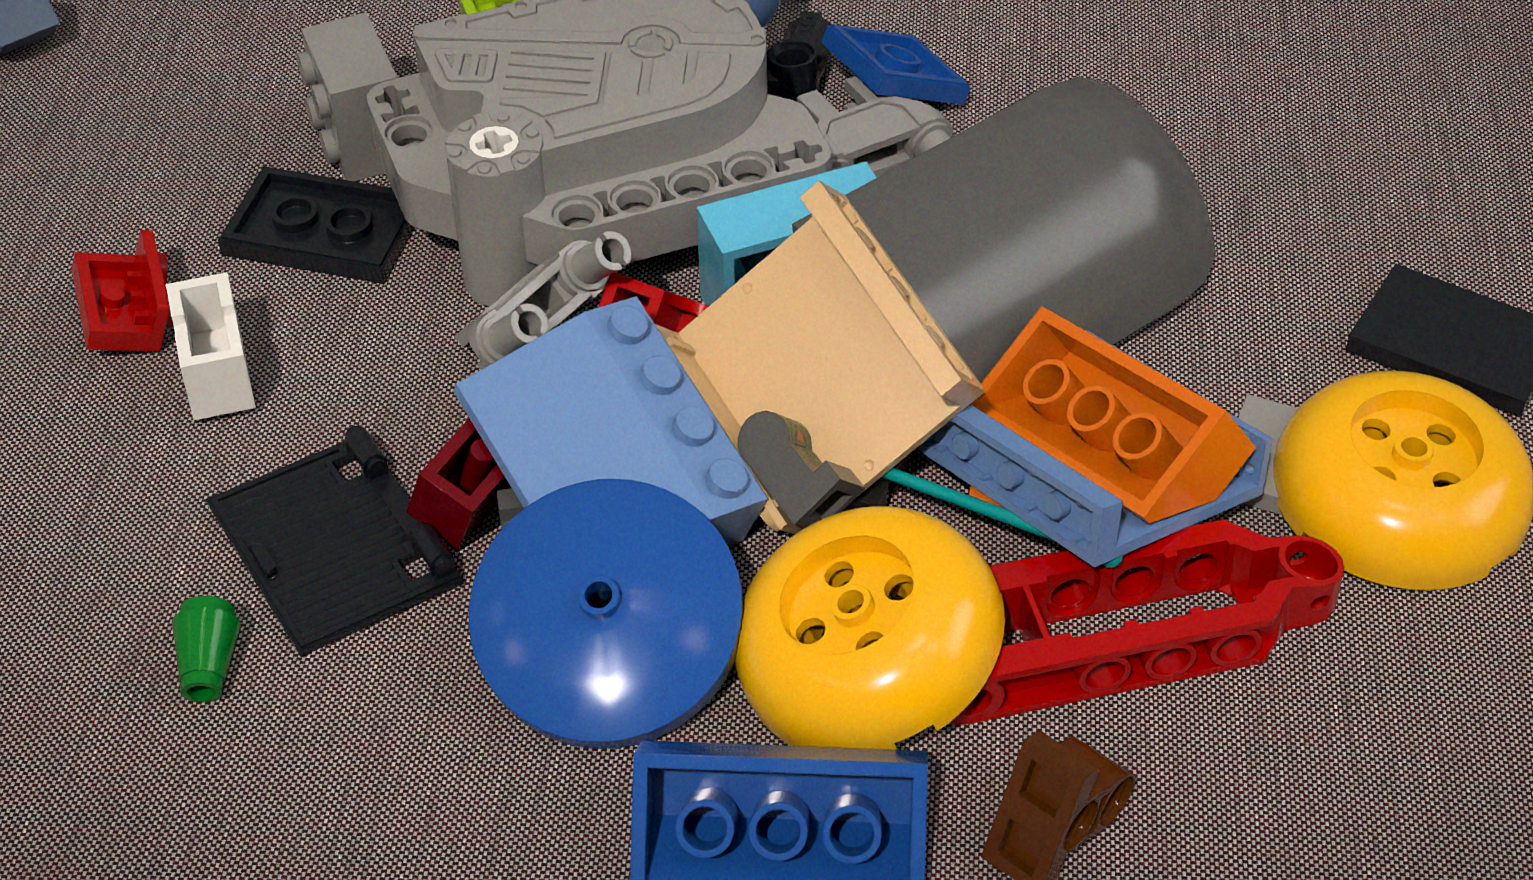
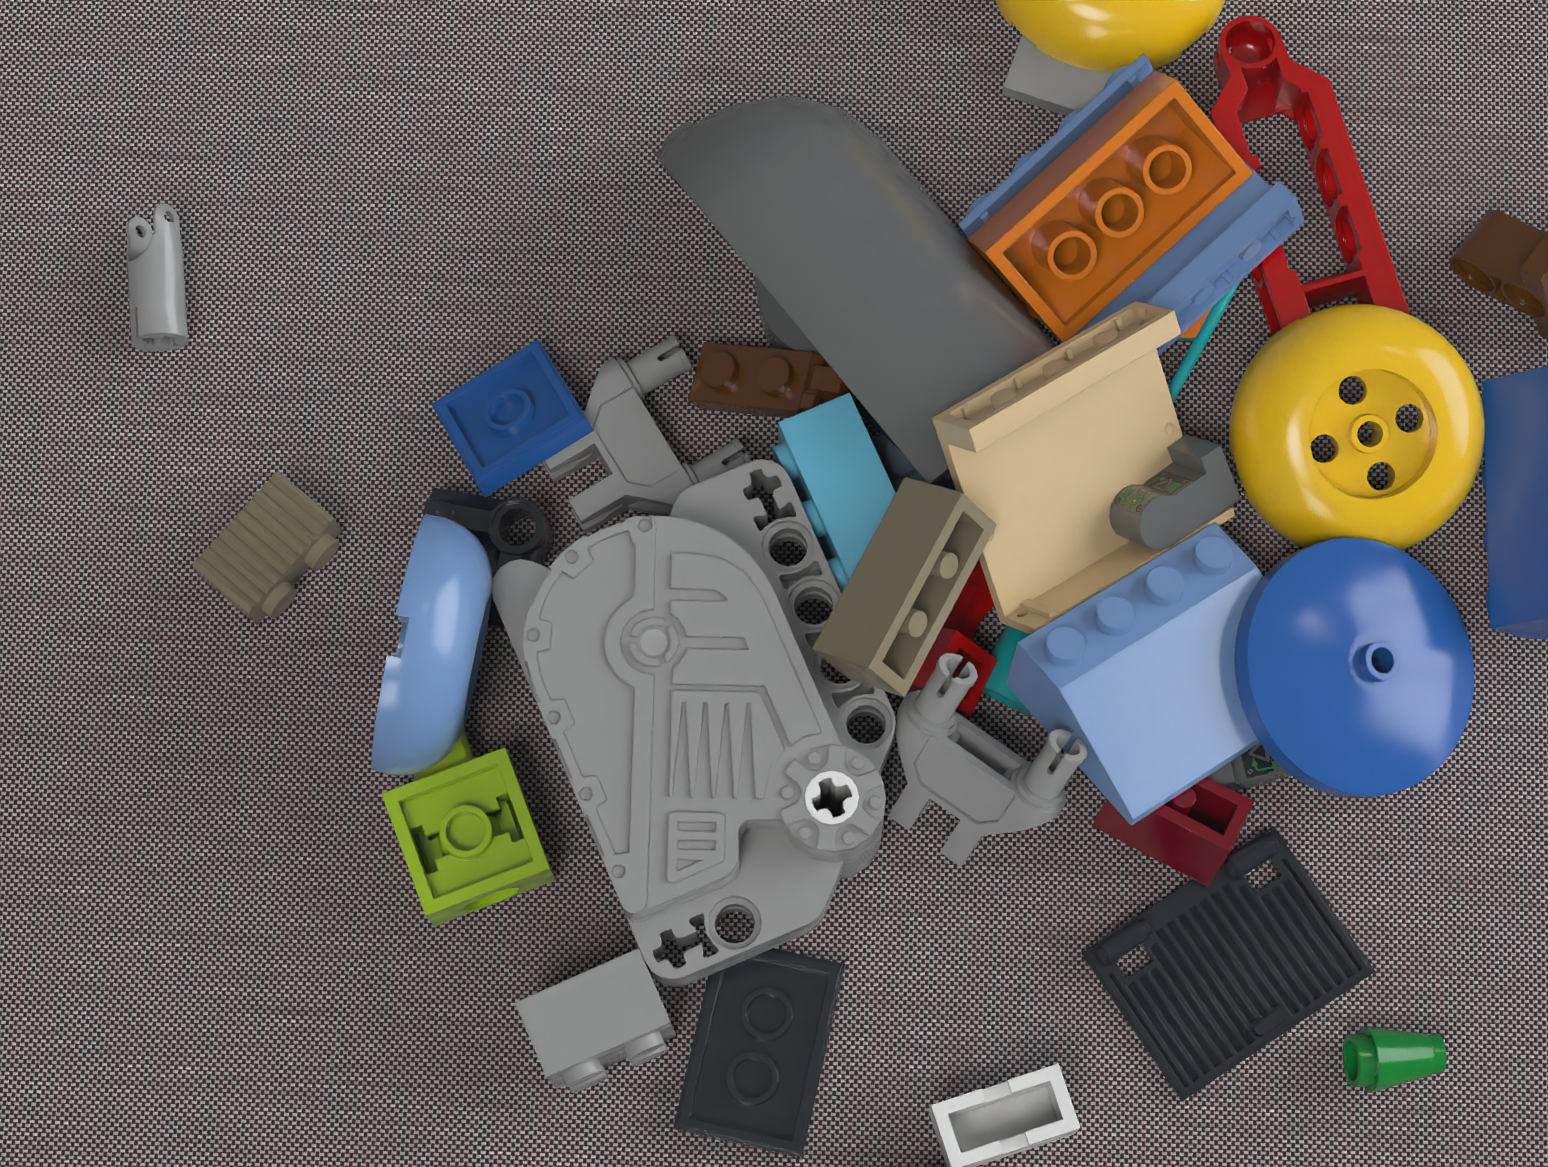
camera: 90 degrees left, 30 degrees up
(689, 200) = (904, 586): none -> dark tan brick

